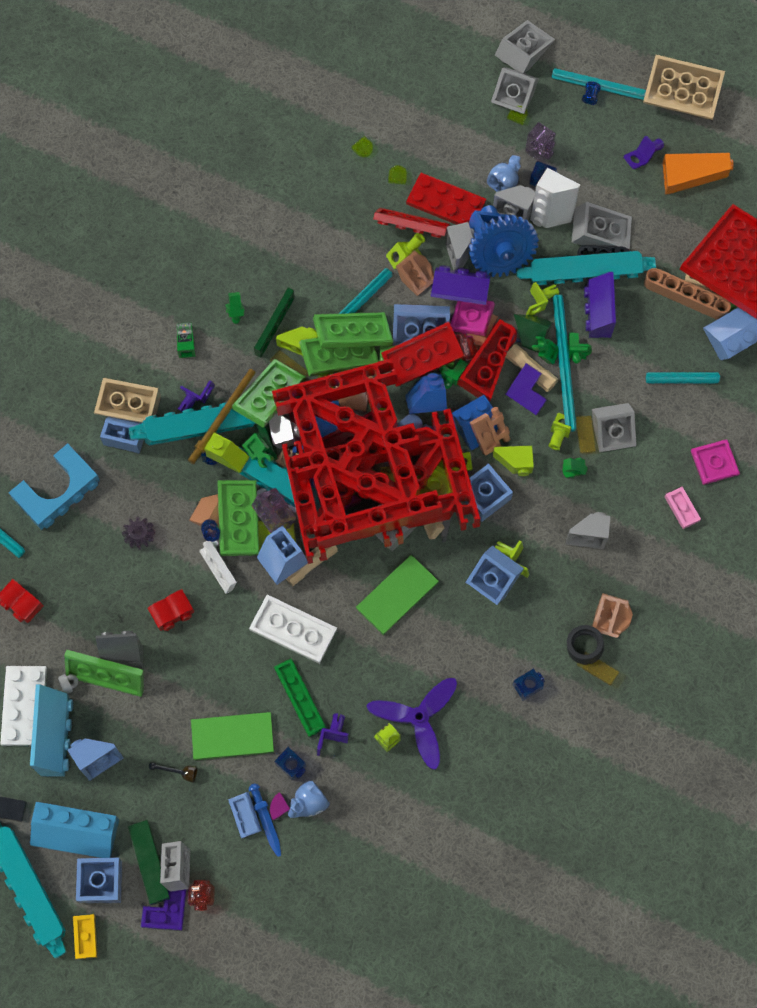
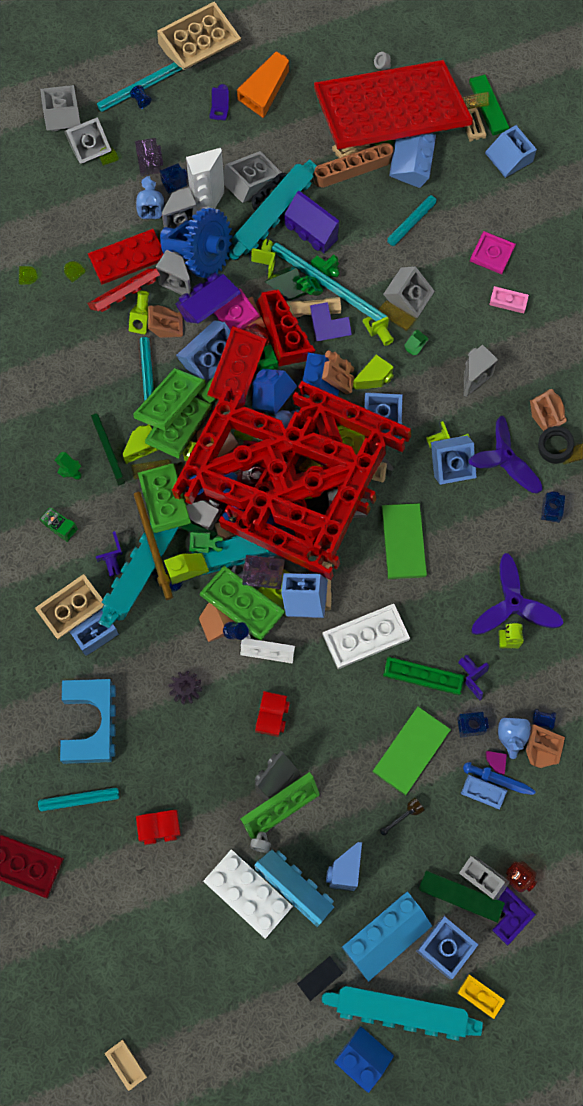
camera: 50 degrees left, 0 degrees up
(319, 833) = (544, 747): none -> nougat slope
(342, 815) = (544, 719): none -> clear blue bush
(535, 614) = (506, 458): none -> dark purple piece

